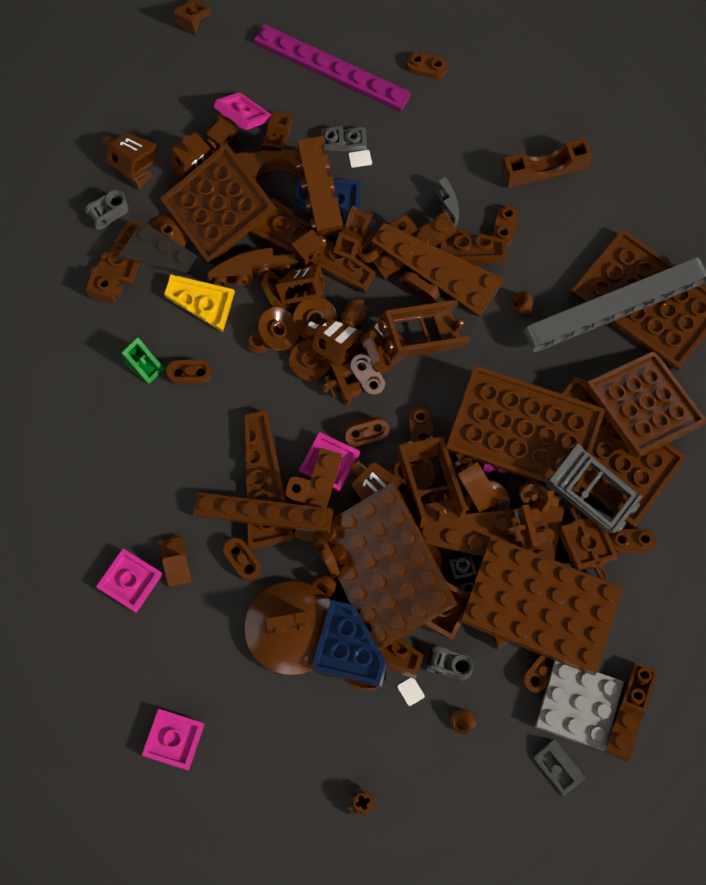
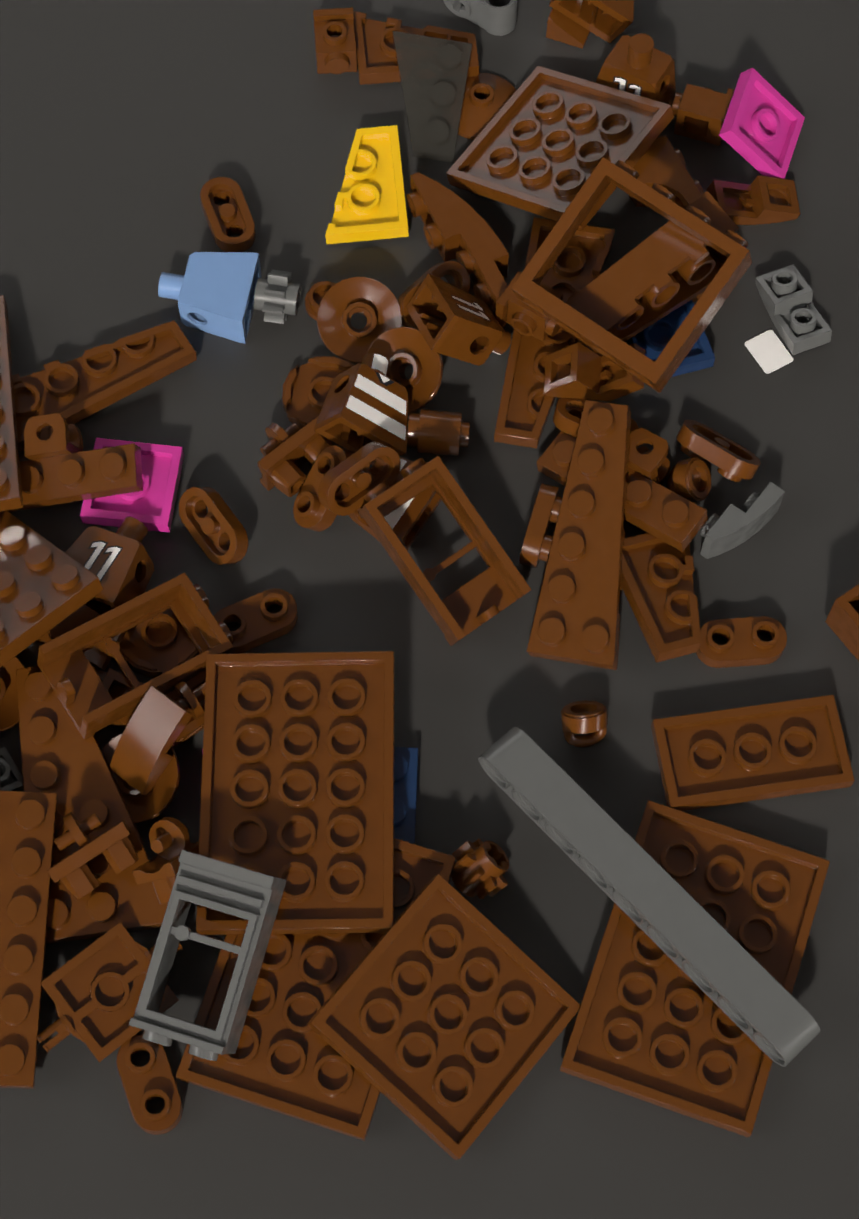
camera: 70 degrees right, 5 degrees down
(141, 360) = (220, 134): green slope -> none
(235, 390) = (215, 292): none -> medium blue torso
(250, 362) = (277, 296): none -> dark grey gear
(298, 162) = (661, 200): none -> reddish brown window
(414, 194) = (705, 443): none -> reddish brown plate
(420, 215) = (690, 479): none -> reddish brown tile
(561, 241) = (752, 753): none -> reddish brown plate
(581, 368) = (480, 868): none -> reddish brown gear

